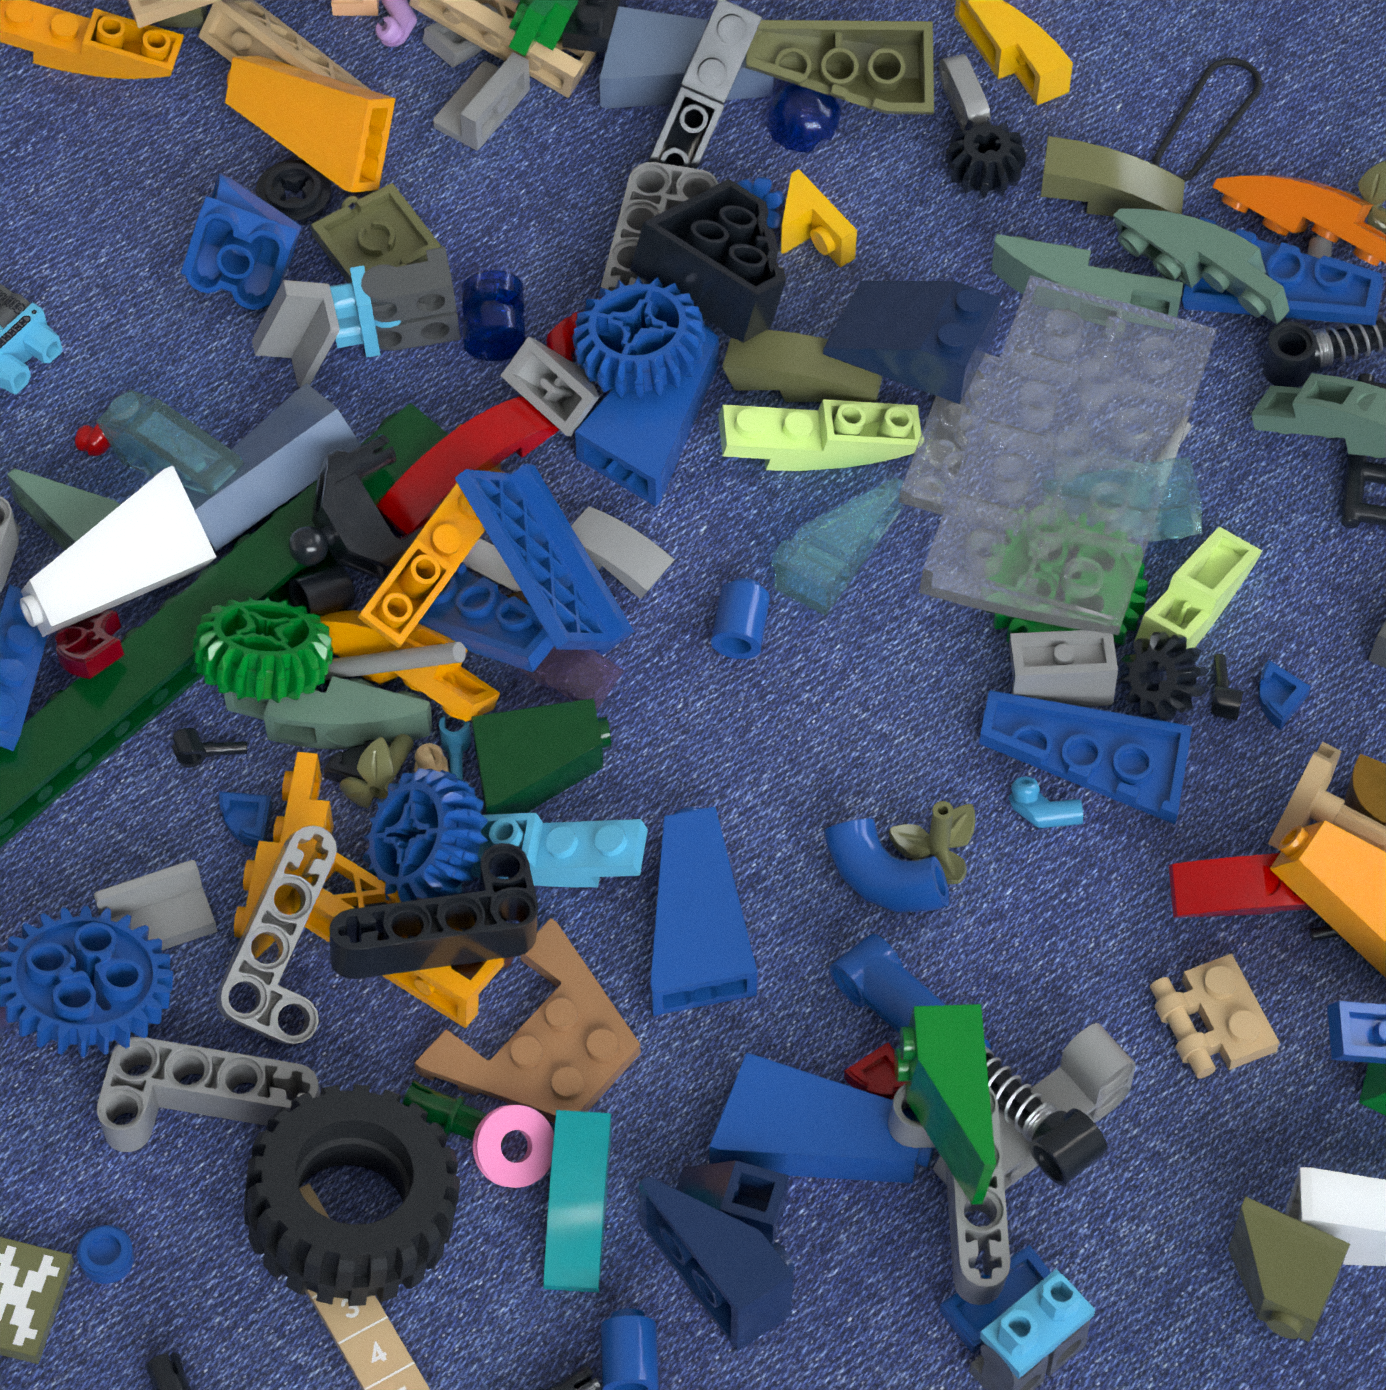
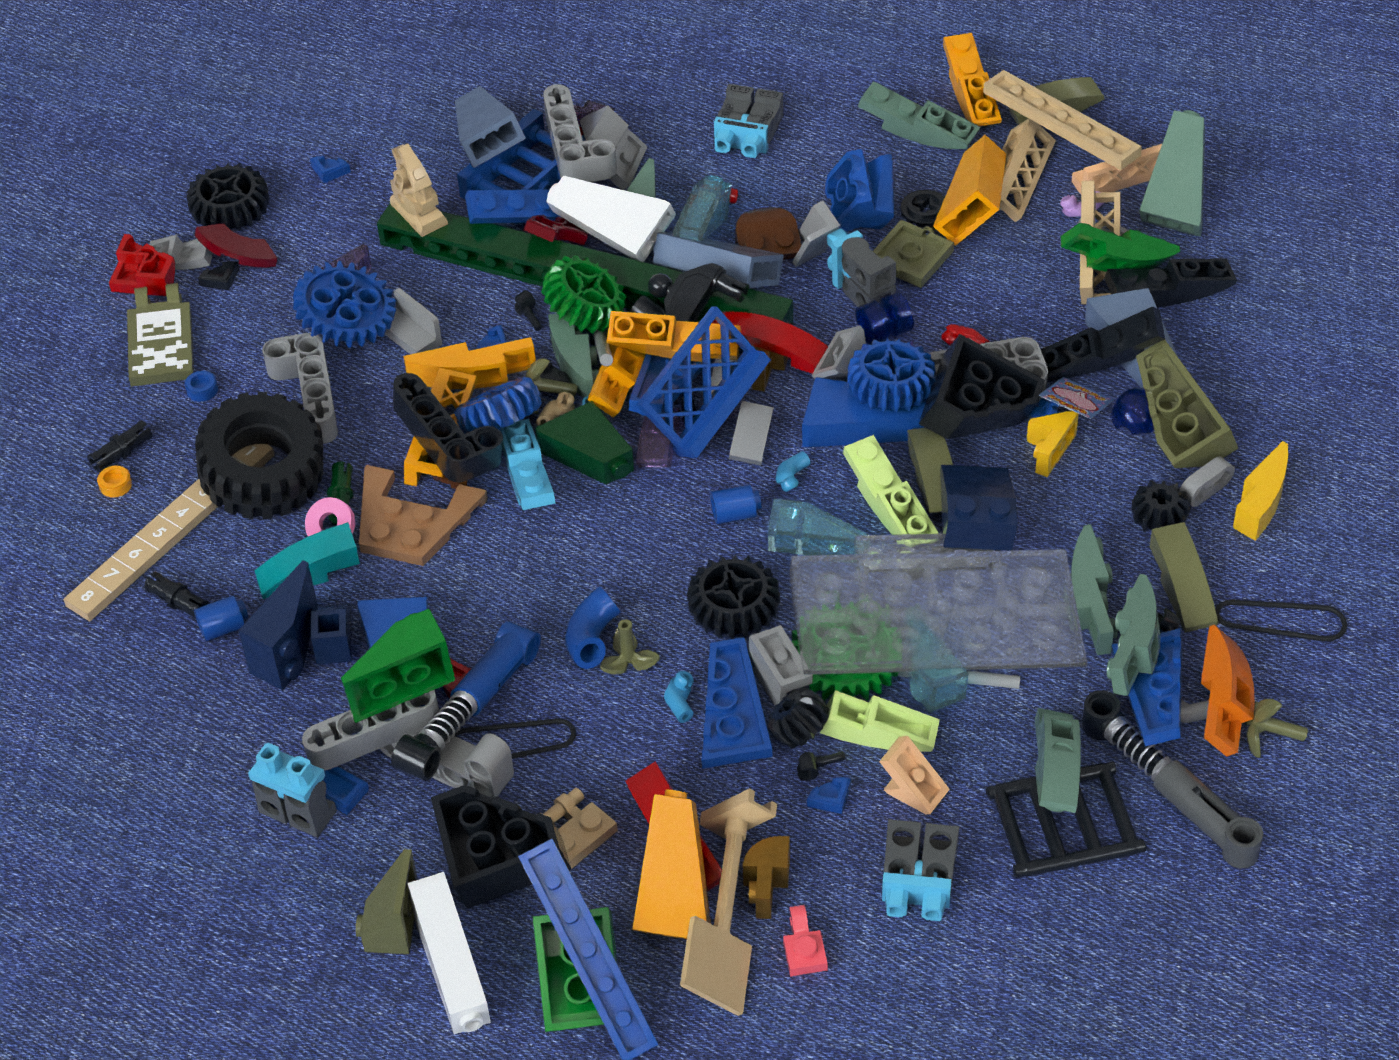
camera: 70 degrees right, 10 degrees down
(128, 128) = (922, 124): none -> sand green slope
(234, 389) = (769, 230): none -> reddish brown slope
(286, 932) = (443, 353): light grey beam -> none
(484, 101) = (1046, 266): light grey panel -> none
(565, 239) = (953, 330): none -> red arm
(699, 925) = (517, 552): blue slope -> none
(704, 536) = (788, 468): none -> dark azure arm
(765, 162) = (1076, 397): none -> sticker
(878, 668) = (733, 596): none -> black gear
(1052, 1009) = (527, 724): none -> black piece
(1232, 1106) = (484, 842): none -> black brick
(1302, 593) = (912, 777): none -> light nougat slope

